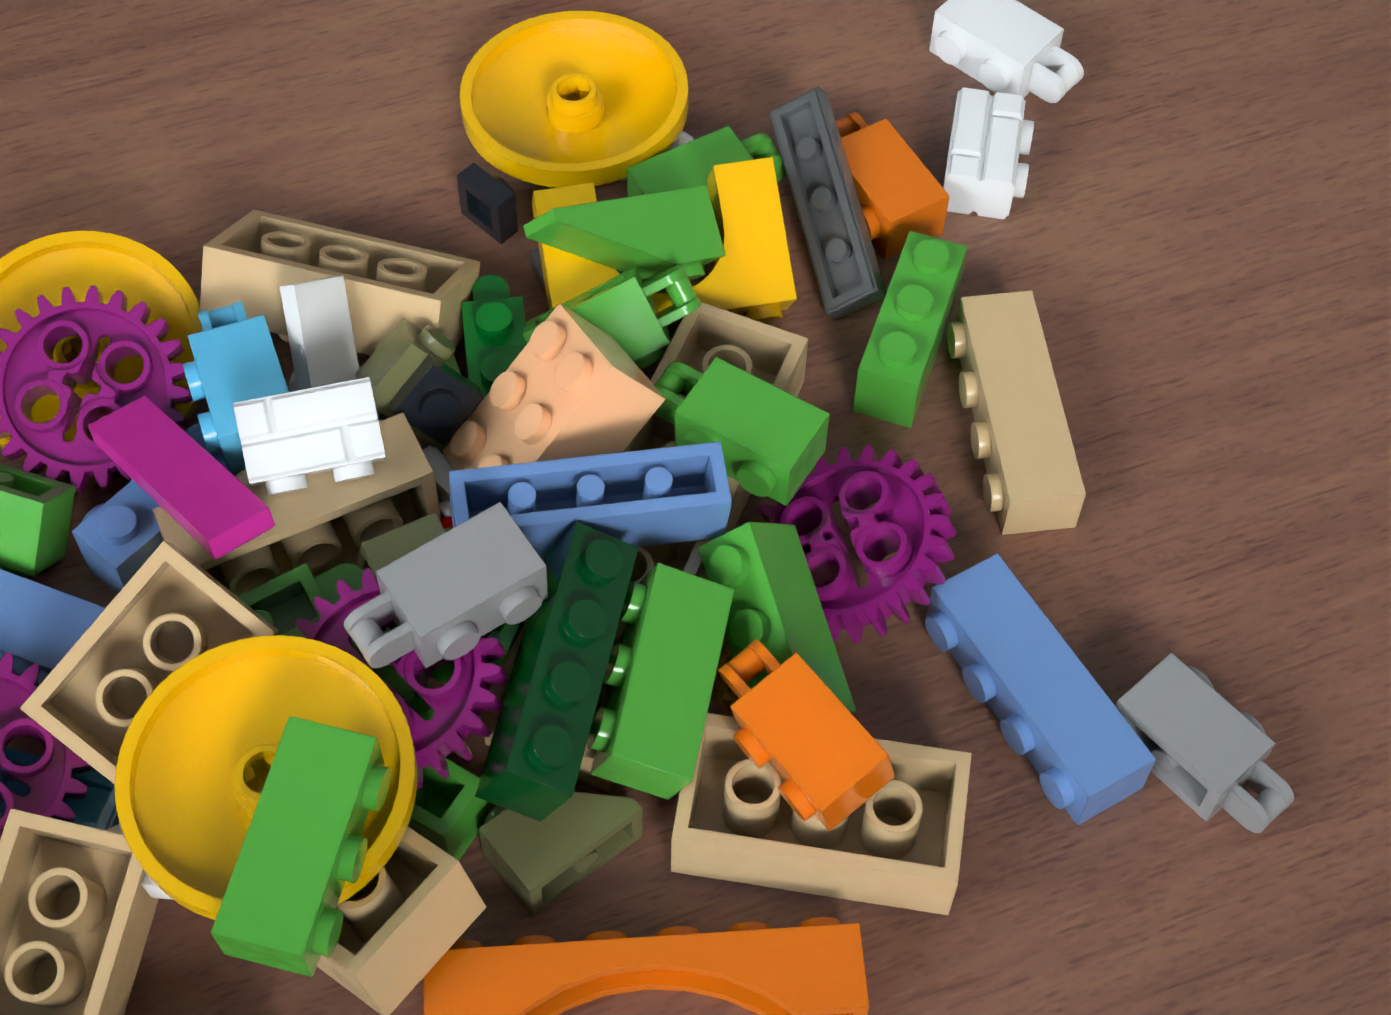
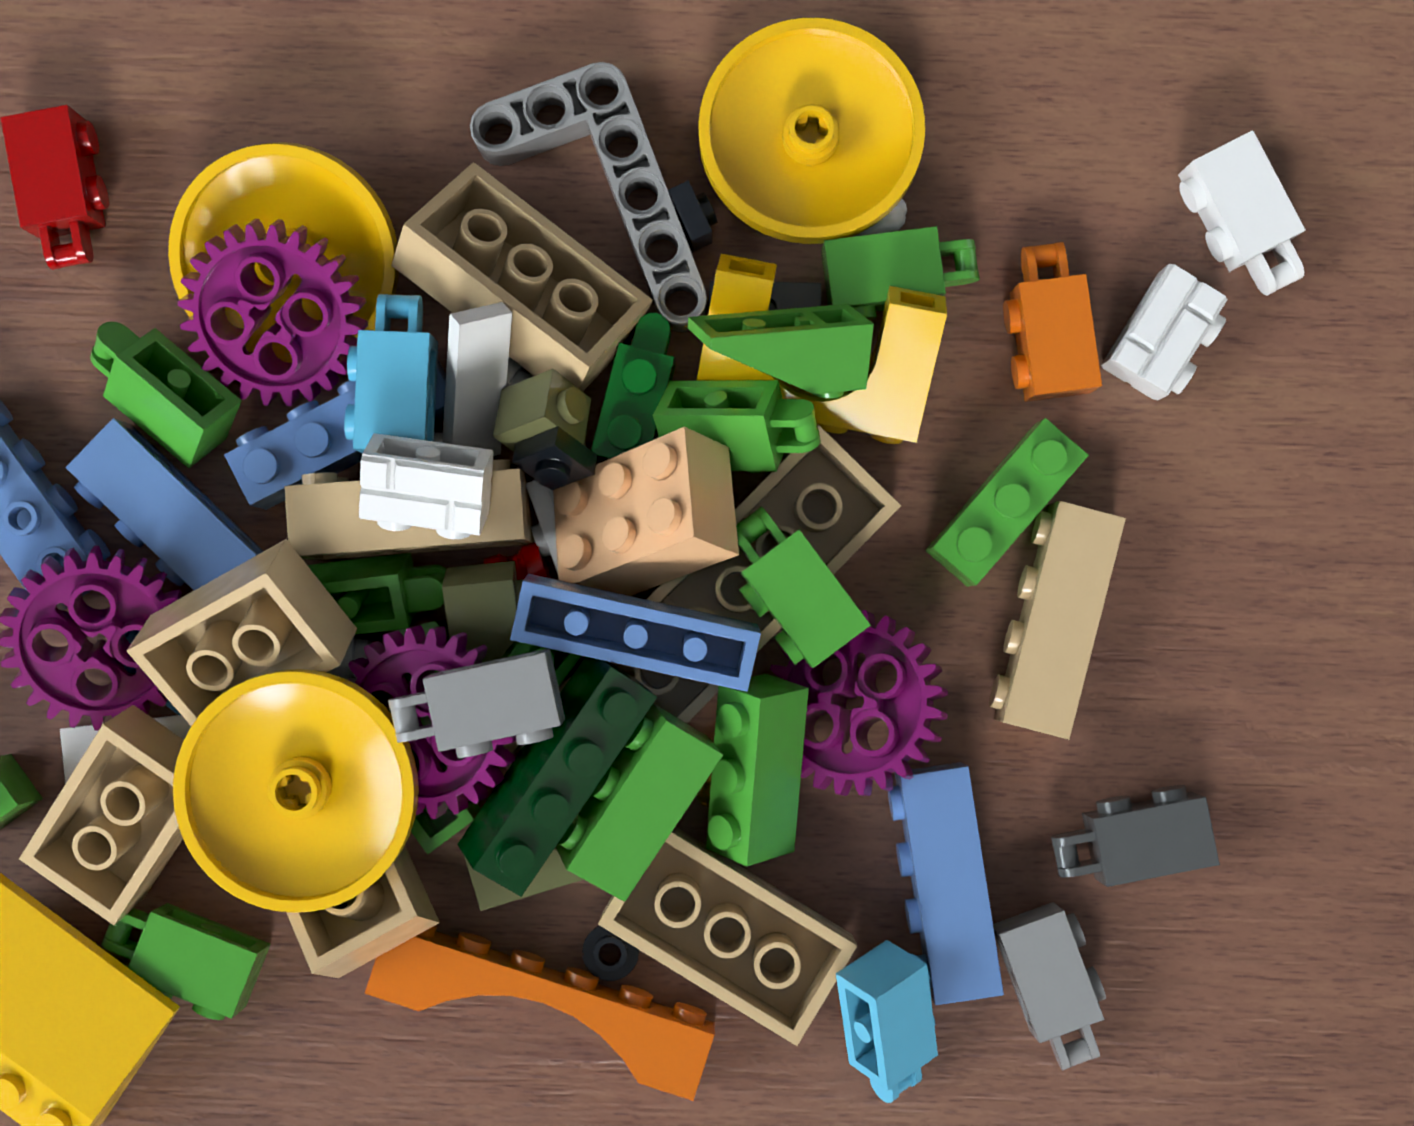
camera: 25 degrees right, 30 degrees up
(182, 477) = (314, 466): dark pink tile -> none
(302, 847) = (297, 882): bright green brick -> none
(370, 149) = (623, 174): none -> light grey beam
(693, 882) = (598, 966): none -> black plate
(805, 735) = (725, 899): orange brick -> none
(827, 204) = (991, 342): dark grey tile -> none
(1047, 834) = (888, 1018): none -> medium azure brick
(1211, 573) = (1140, 838): none -> dark grey brick

